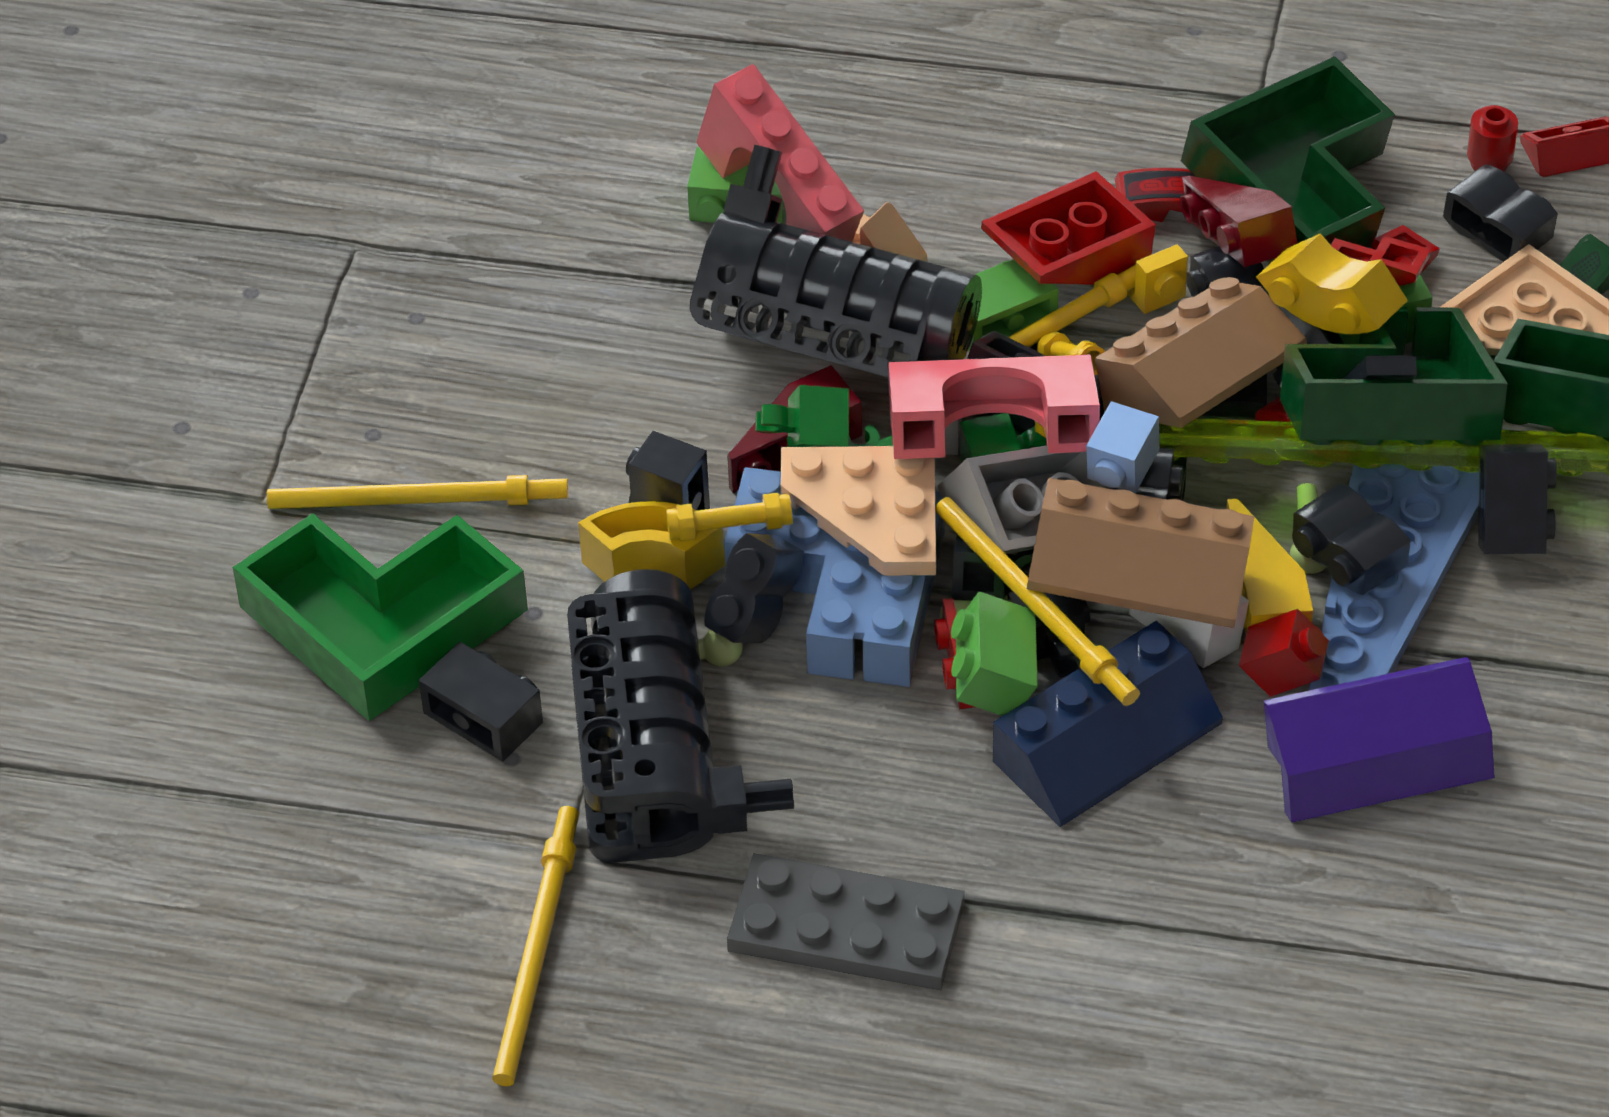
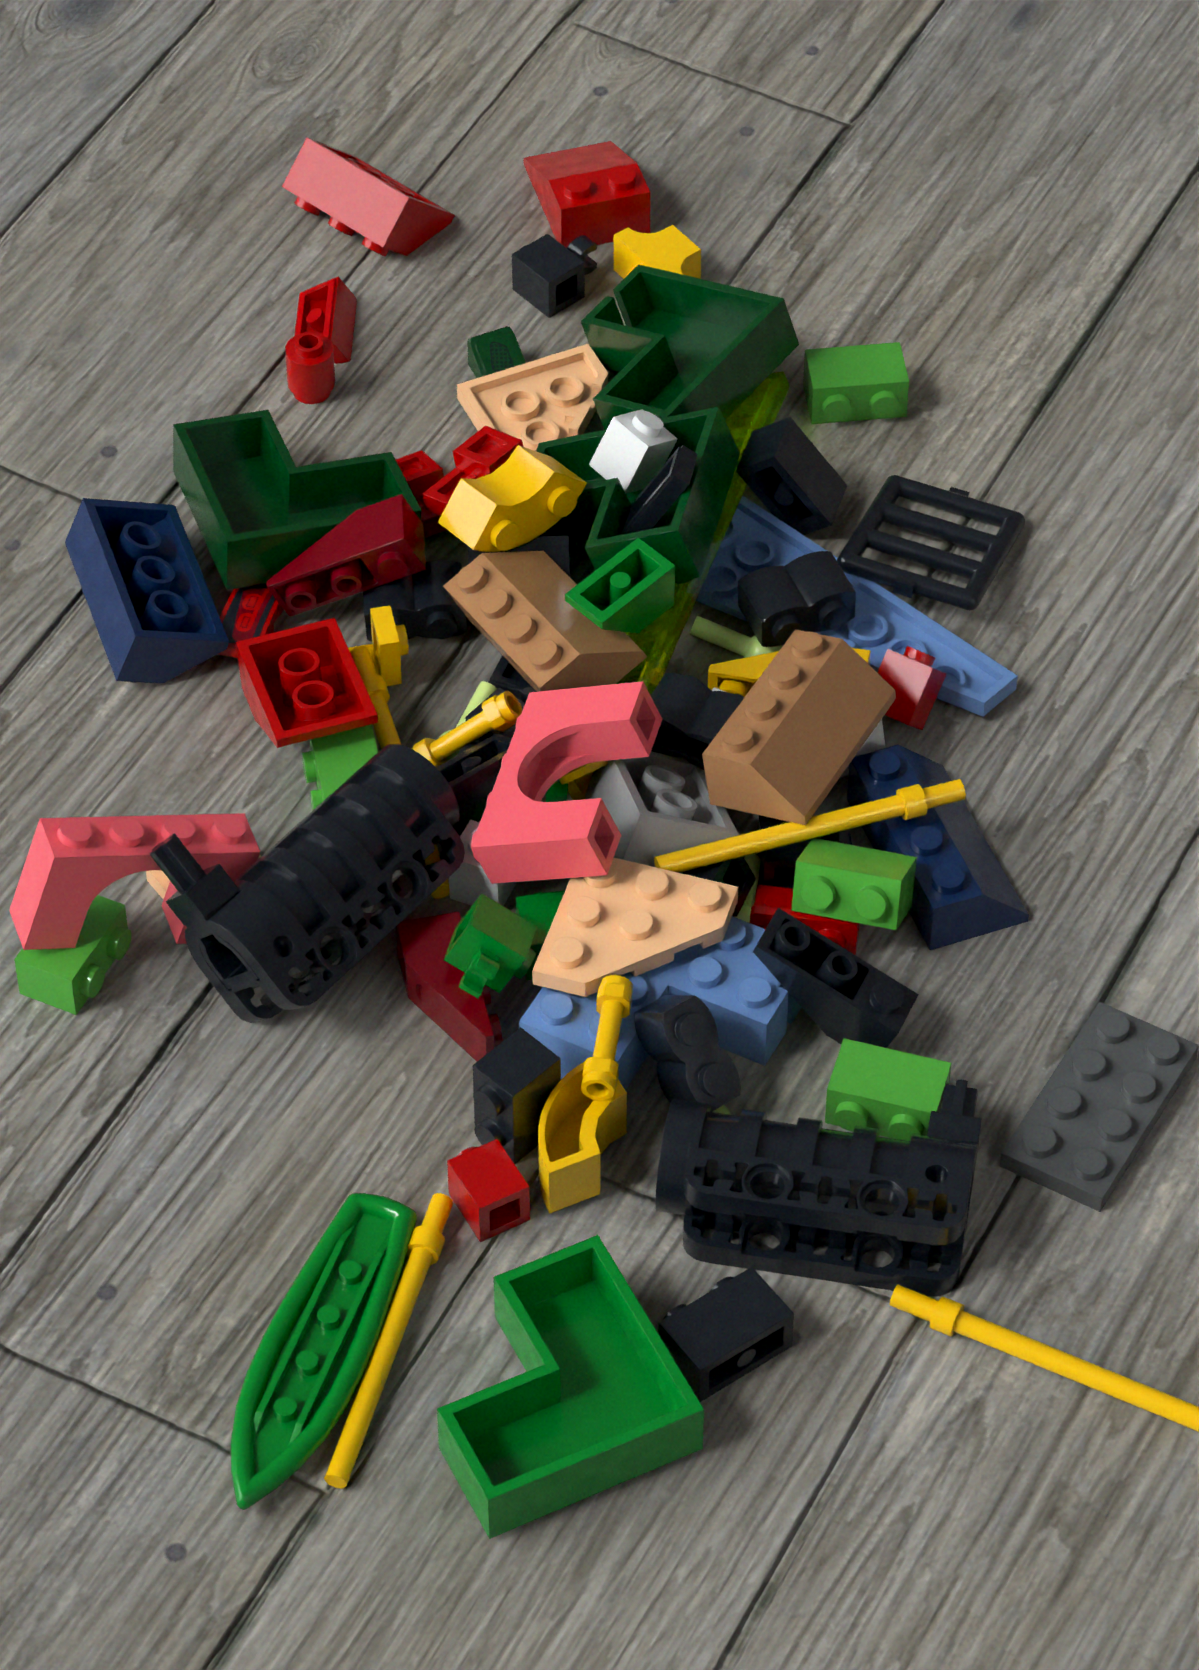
camera: 75 degrees left, 0 degrees up
(394, 448) = (318, 1344): none -> green piece
(573, 501) = (488, 1190): none -> red brick
(787, 747) = (885, 1090): none -> bright green brick
(871, 668) = (833, 984): none -> black slope
(1122, 447) = (687, 690): light blue brick -> none
(1149, 106) = (144, 589): none -> dark blue slope
(1234, 382) = (627, 590): none -> green slope
(1380, 739) = (1033, 650): dark purple slope -> none
(1445, 348) = (633, 449): none -> white brick
(1499, 213) = (404, 394): black brick -> none
(1534, 594) = (908, 583): none -> black bar

